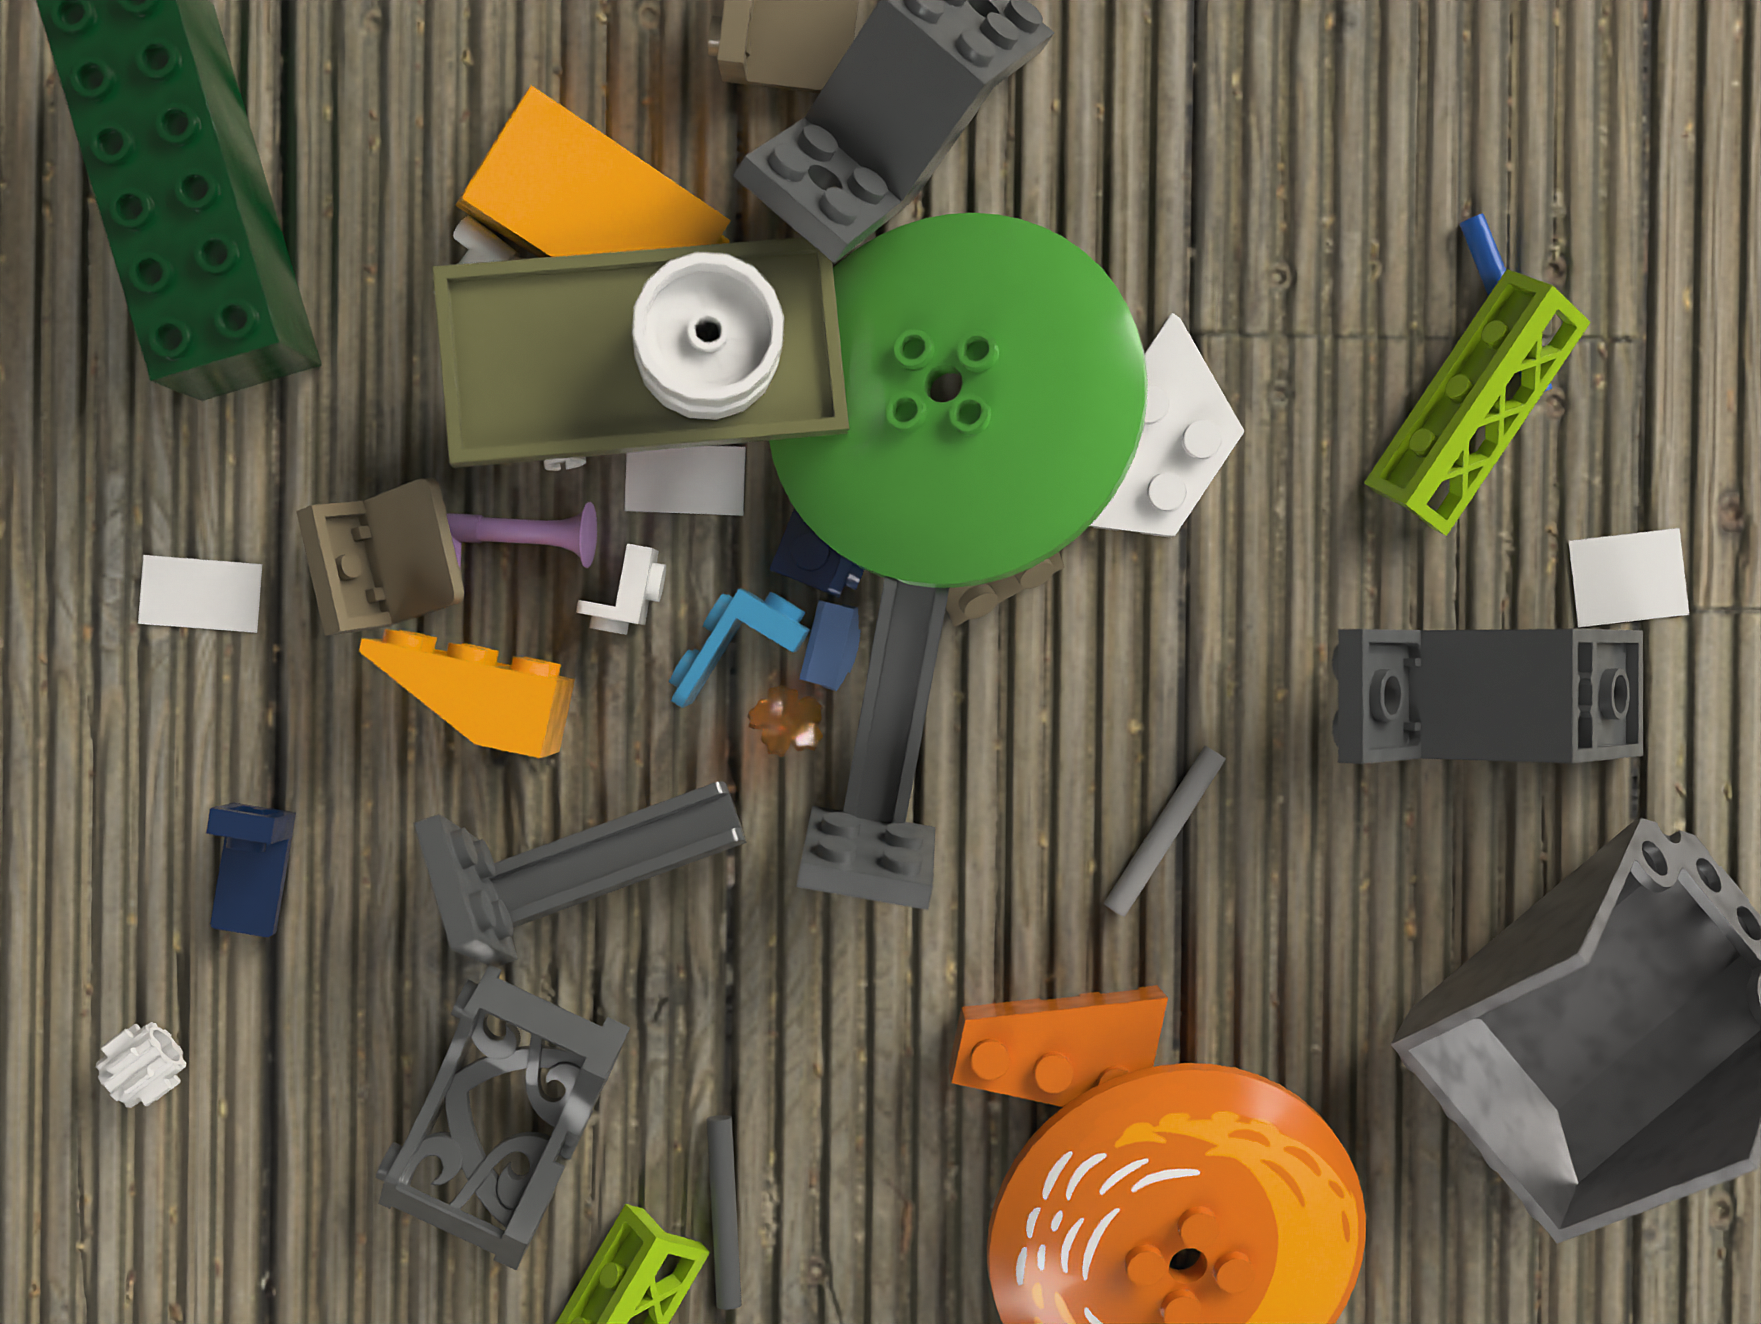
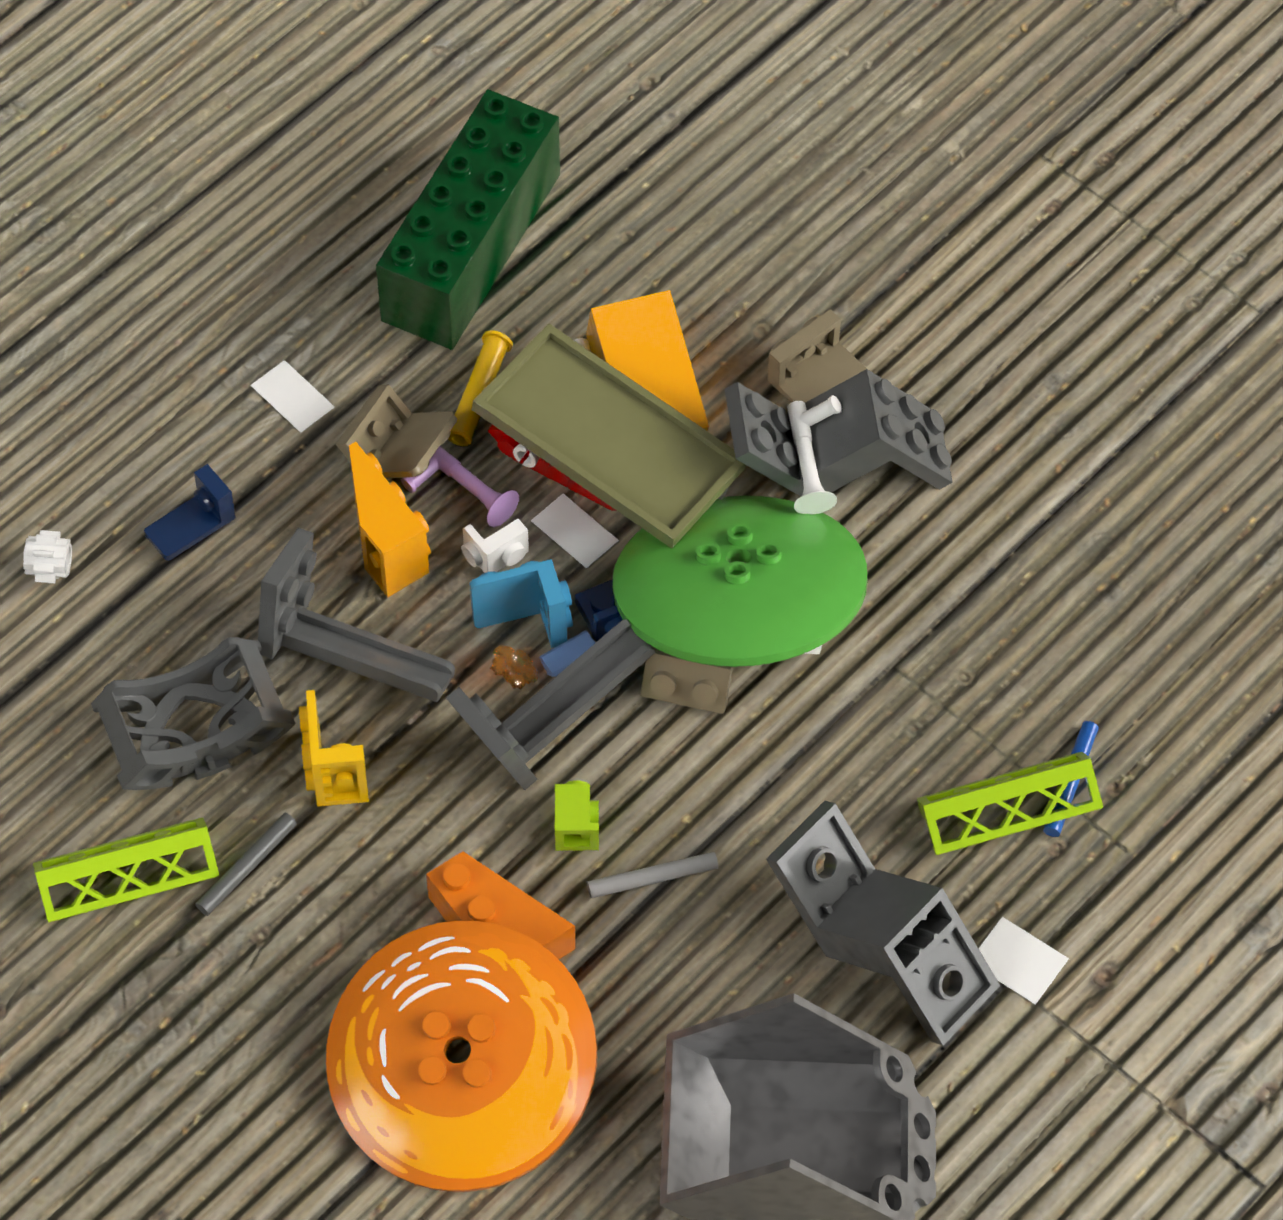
camera: 45 degrees right, 30 degrees down
(403, 392) = (484, 372): none -> yellow pin
(700, 1059) = (333, 772): none -> yellow bracket
(724, 300) = (644, 440): white wheel -> none
(845, 129) = (814, 497): none -> white piece
(1027, 845) = (576, 817): none -> lime brick
(1182, 441) = (820, 696): white wing -> none

